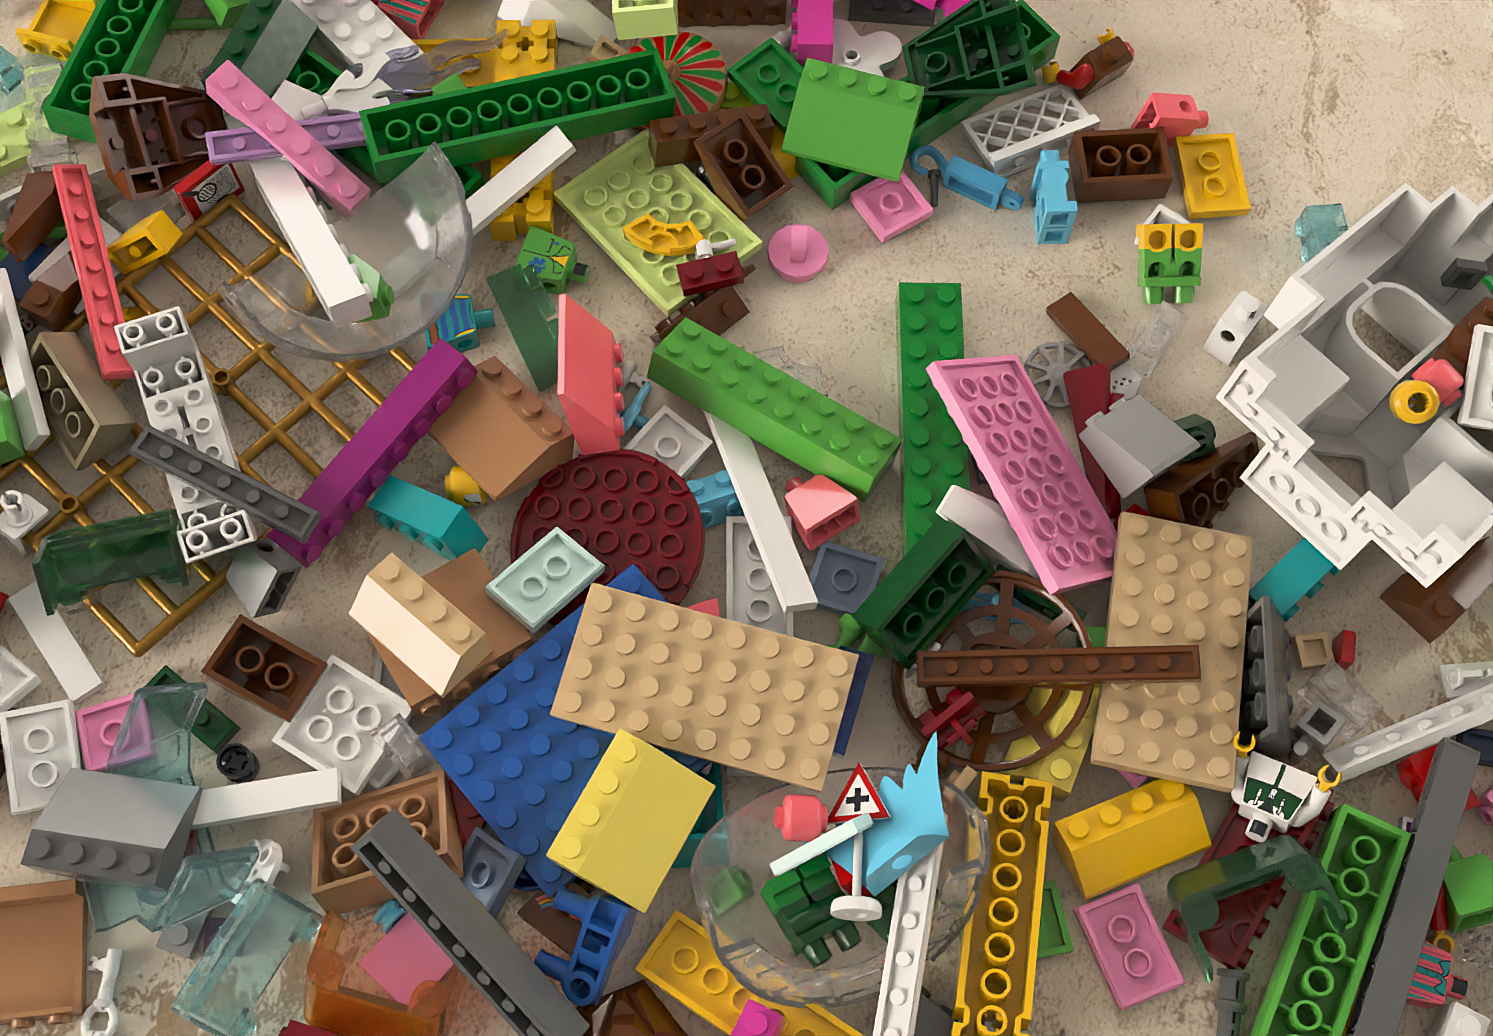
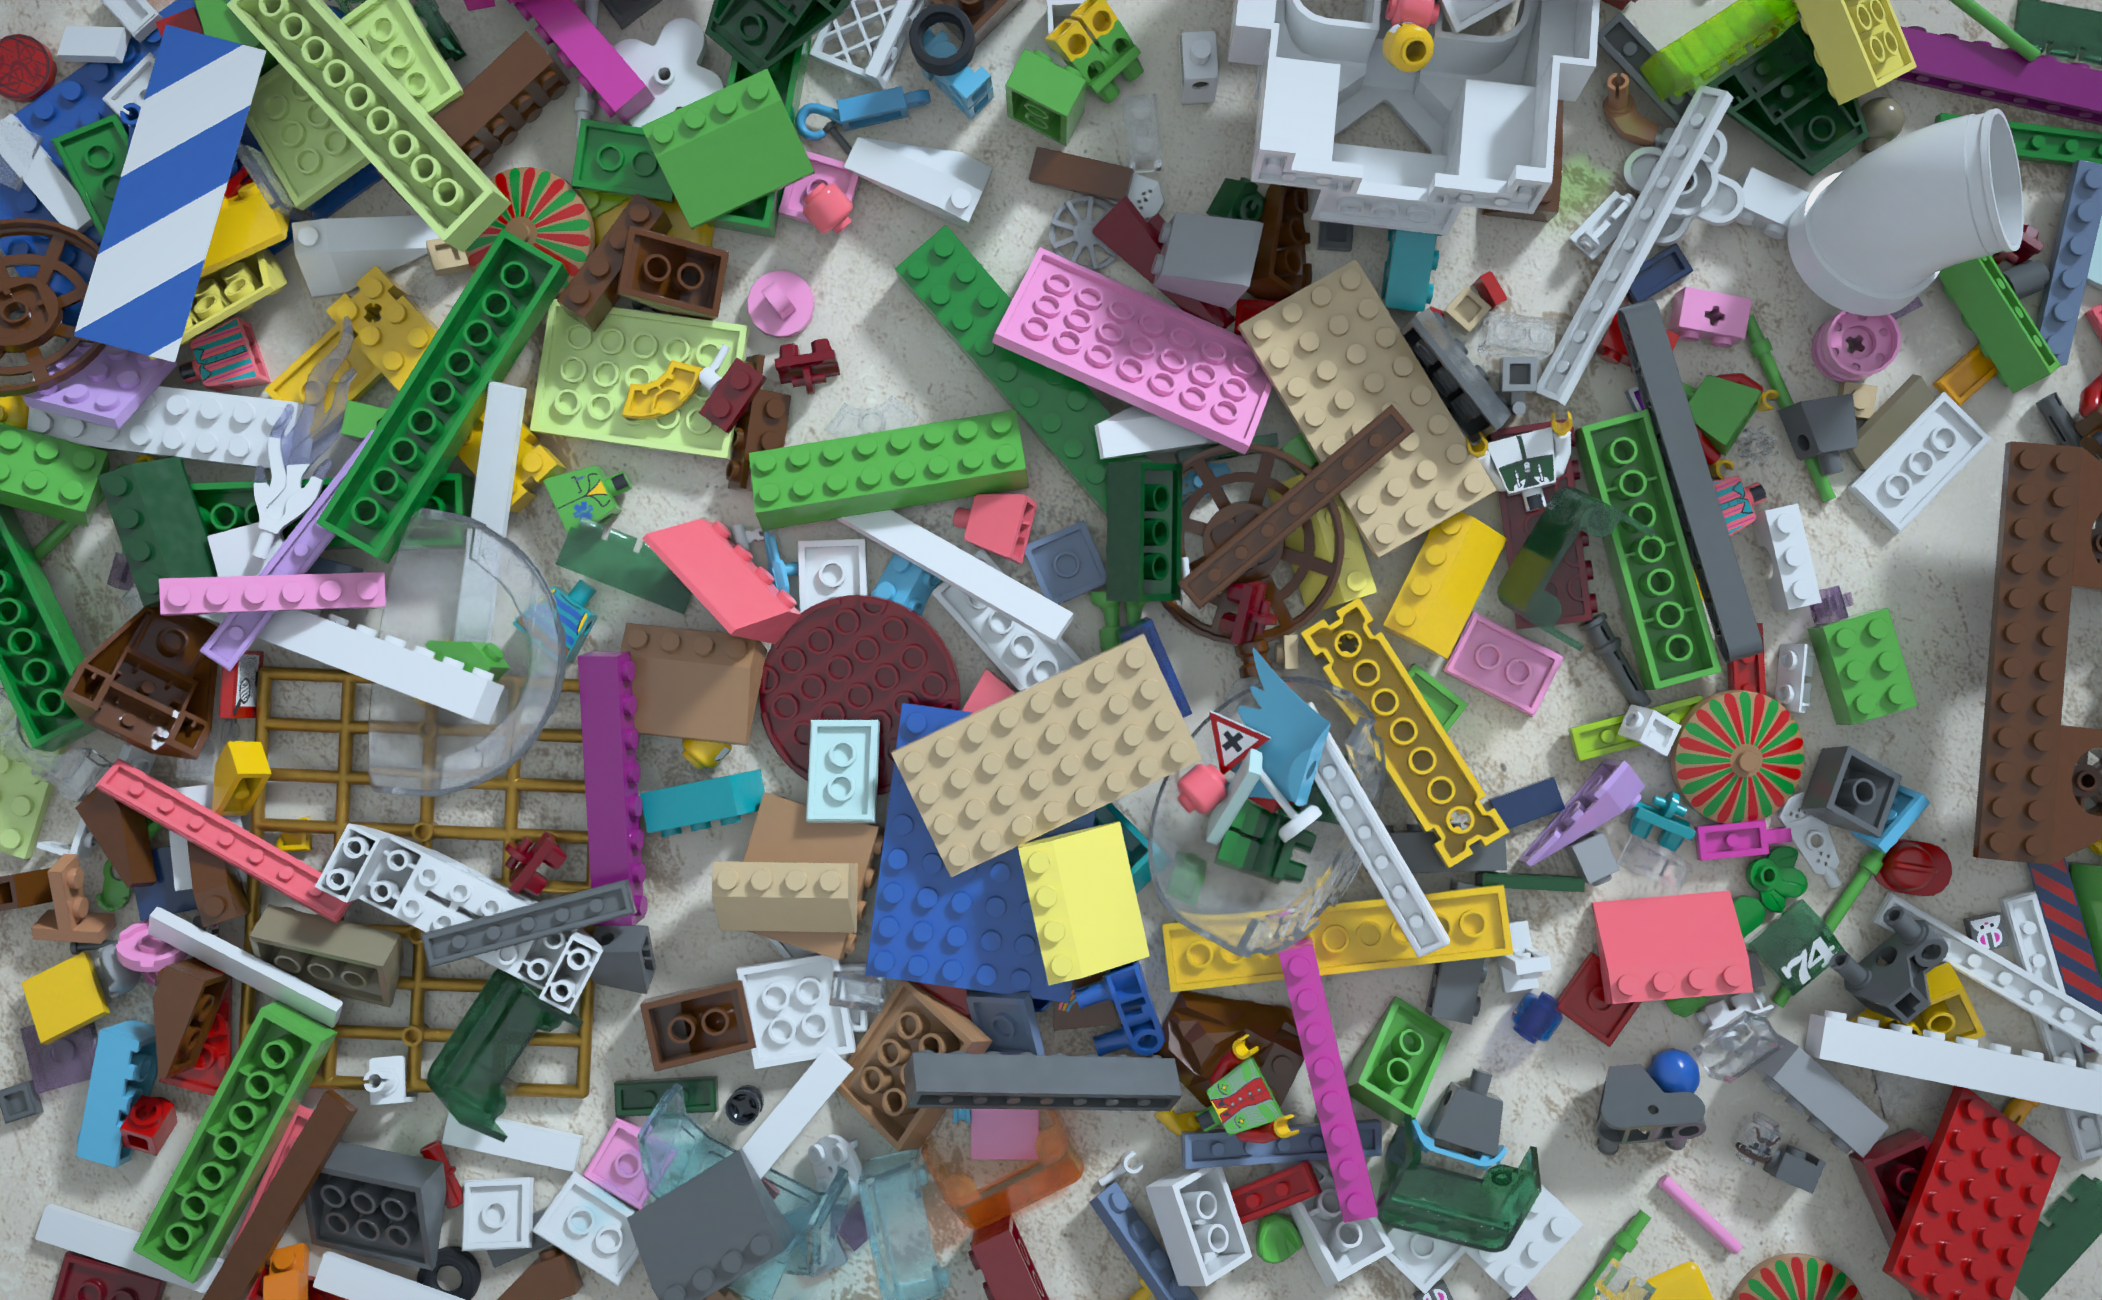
camera: 40 degrees left, 20 degrees up
(256, 462) = (525, 875): none -> dark red hips
(779, 302) = (807, 368): none -> dark red hips
(886, 211) = (827, 208): none -> coral head
(973, 251) = (928, 177): none -> white wedge
(1066, 143) = (939, 14): none -> black tyre
(1105, 256) = (1045, 96): none -> bright green brick
(1250, 518) = (1335, 236): none -> dark grey tile

